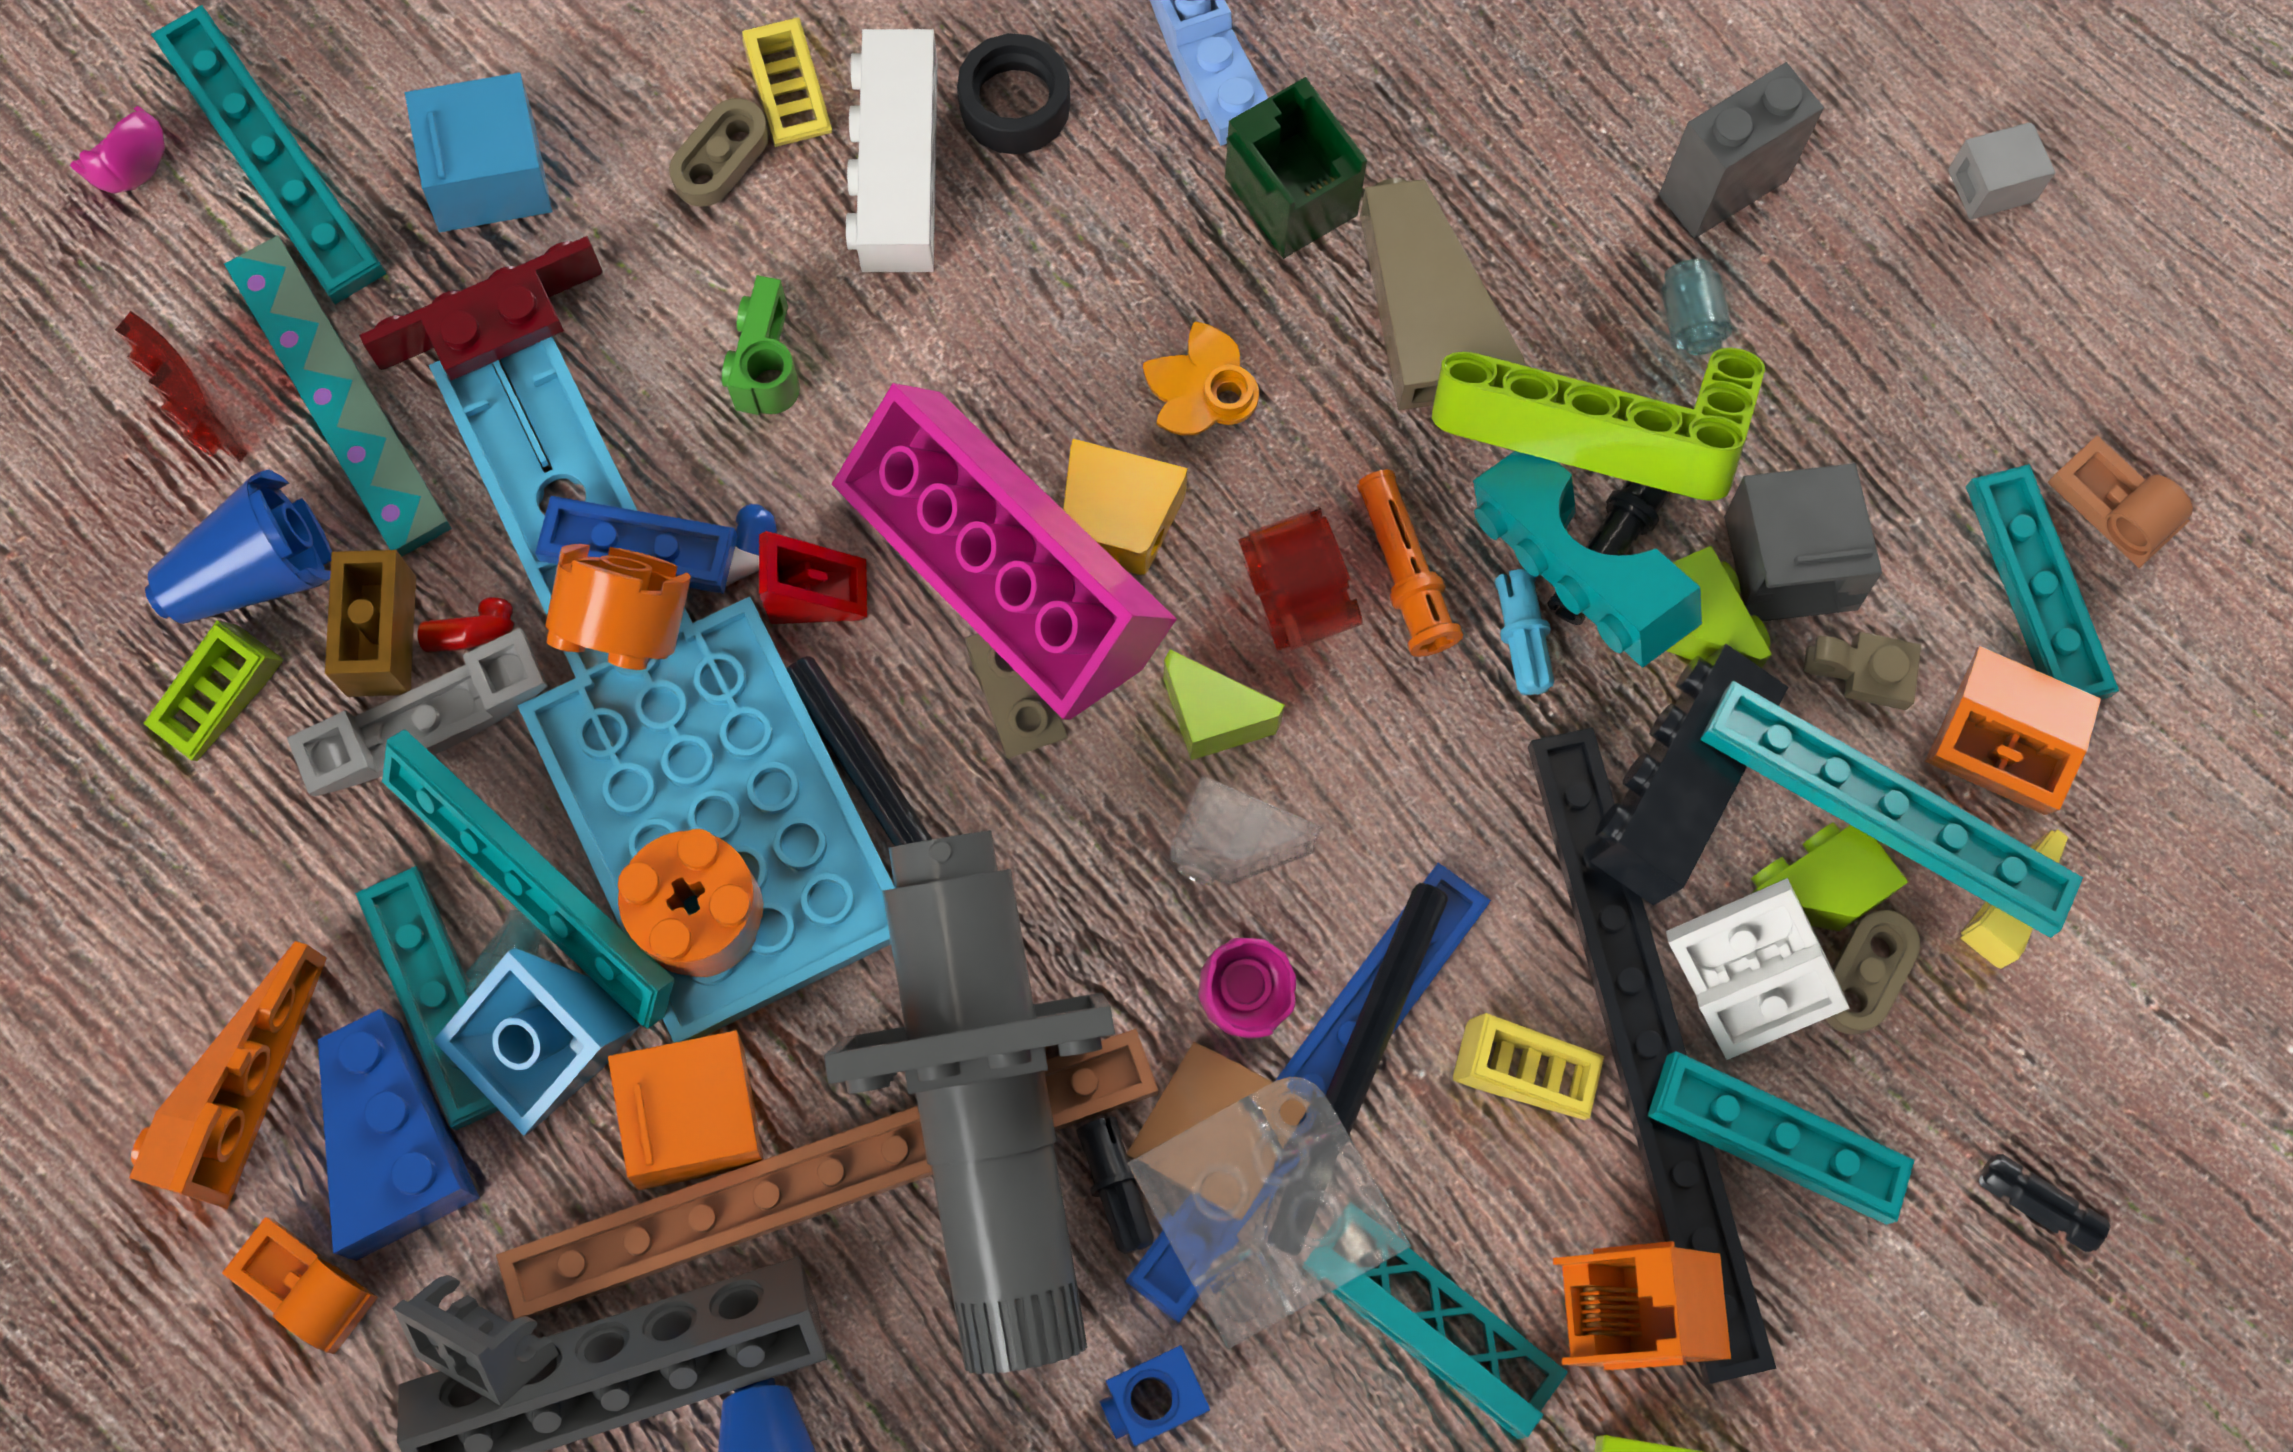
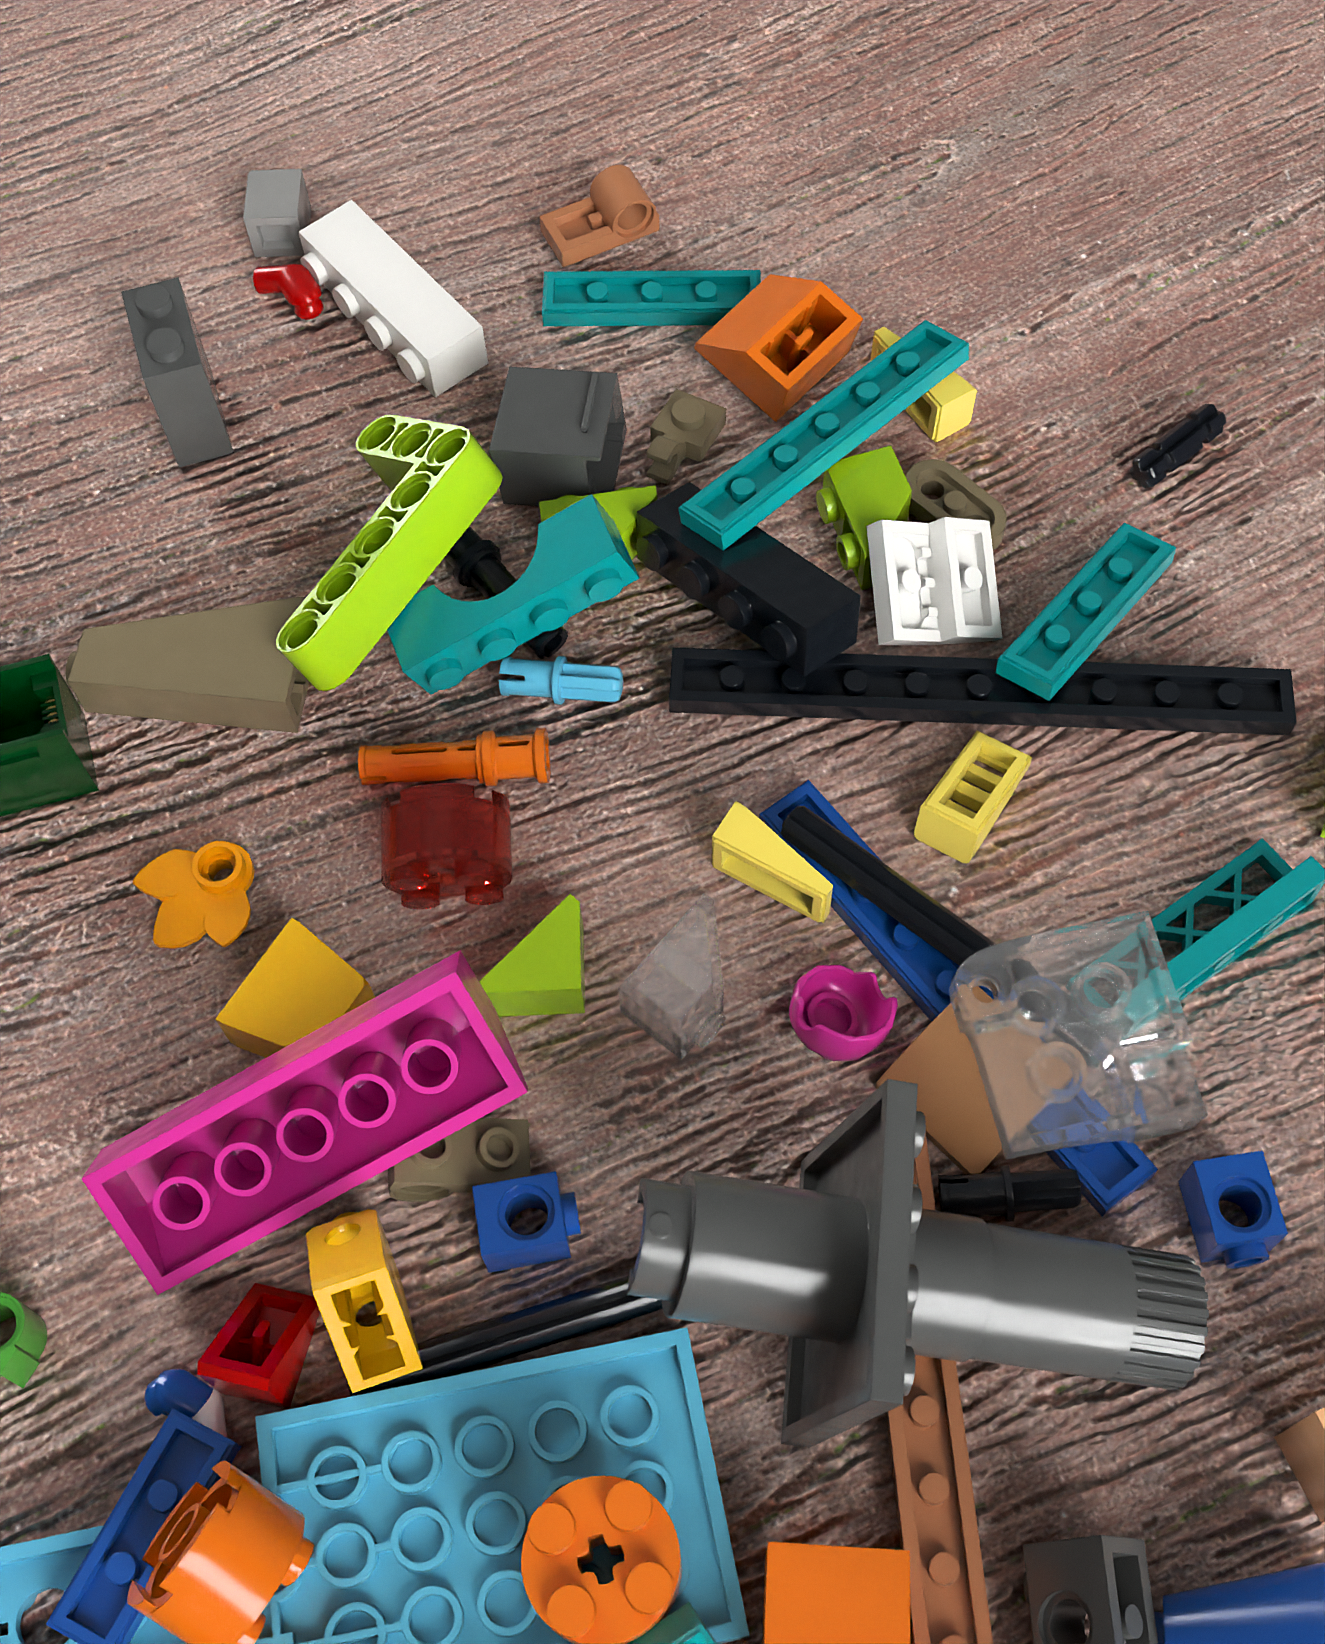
camera: 70 degrees left, 10 degrees down
(863, 643) = (347, 1270): none -> yellow torso
(965, 736) = (499, 1204): none -> blue brick
(1390, 864) = (764, 861): none -> light yellow slope
(1644, 1307) = (1235, 745): orange piece -> none
(1696, 307) = (303, 460): clear light blue brick -> none
(1914, 222) = (295, 284): none -> red arm
(1931, 322) = (393, 299): none -> white brick

